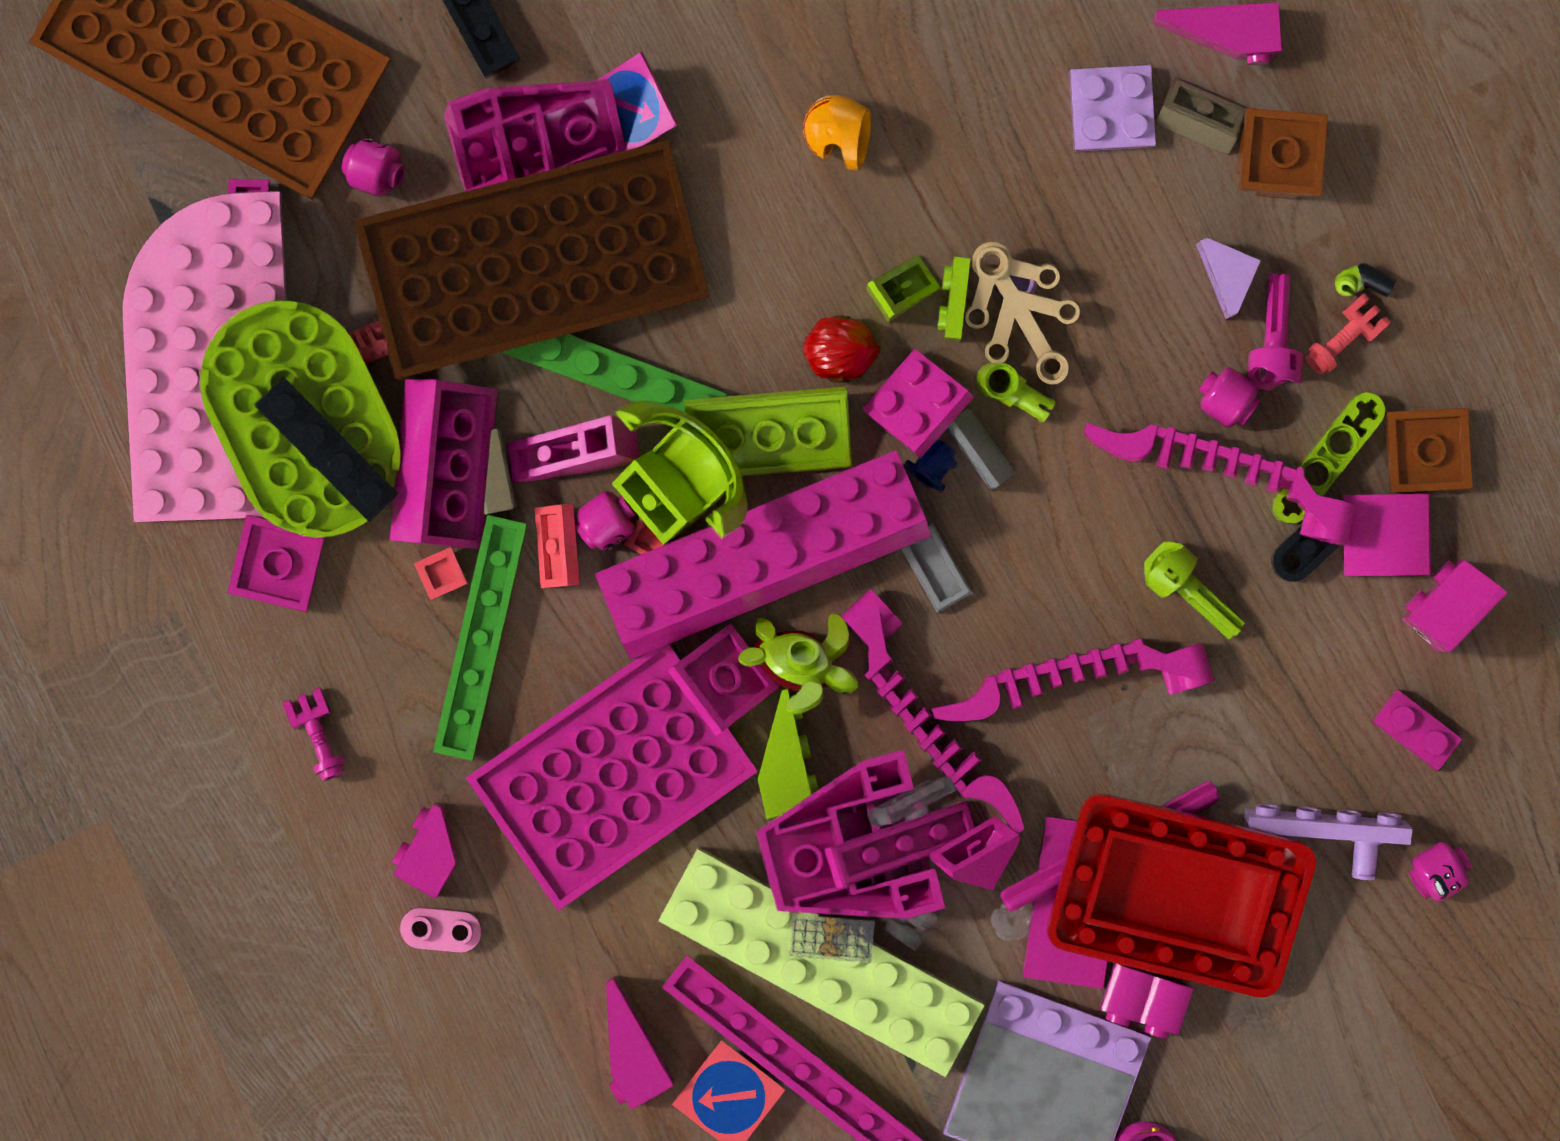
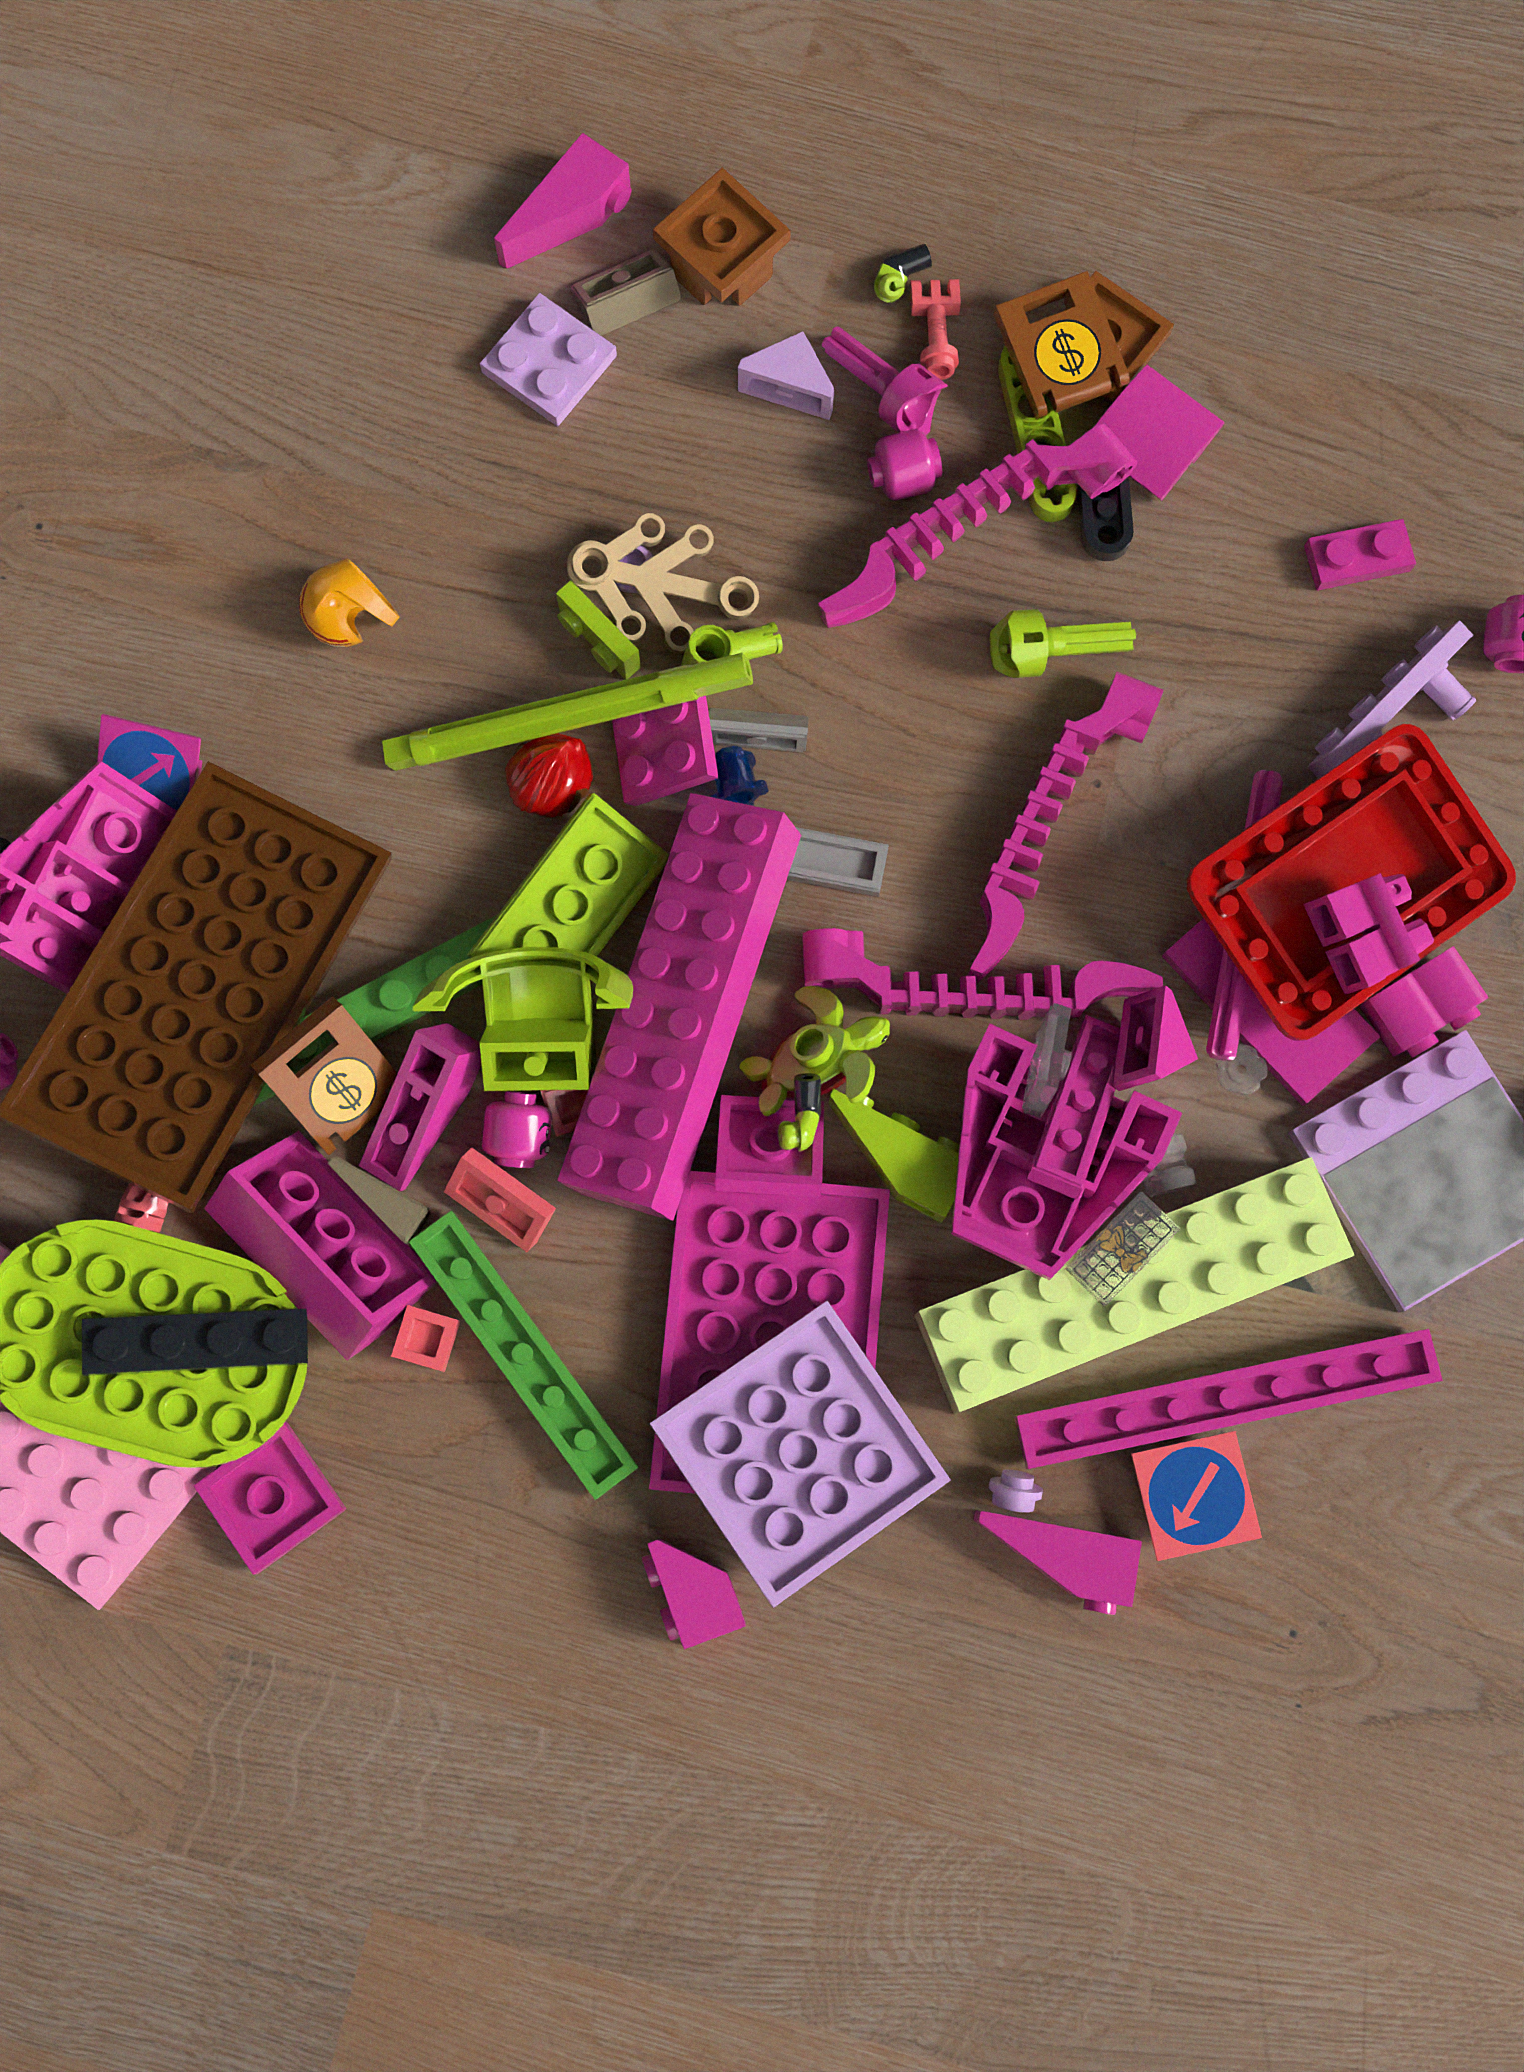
camera: 50 degrees left, 10 degrees down
(328, 766) = (517, 1620): dark pink hinge -> none
(440, 929) = (781, 1649): bright pink plate -> none
(542, 395) = (339, 1086): none -> container
(558, 847) = (799, 1453): none -> lavender plate
(643, 990) = (1015, 1491): none -> lavender plate
(758, 686) = (807, 1113): none -> arm
(881, 330) = (567, 712): none -> lime piece
(902, 287) = (541, 670): lime slope -> none
(1148, 928) = (1385, 940): none -> dark pink hips
(1388, 438) = (1063, 351): none -> dark orange container
(1452, 605) = (1273, 420): dark pink slope -> none

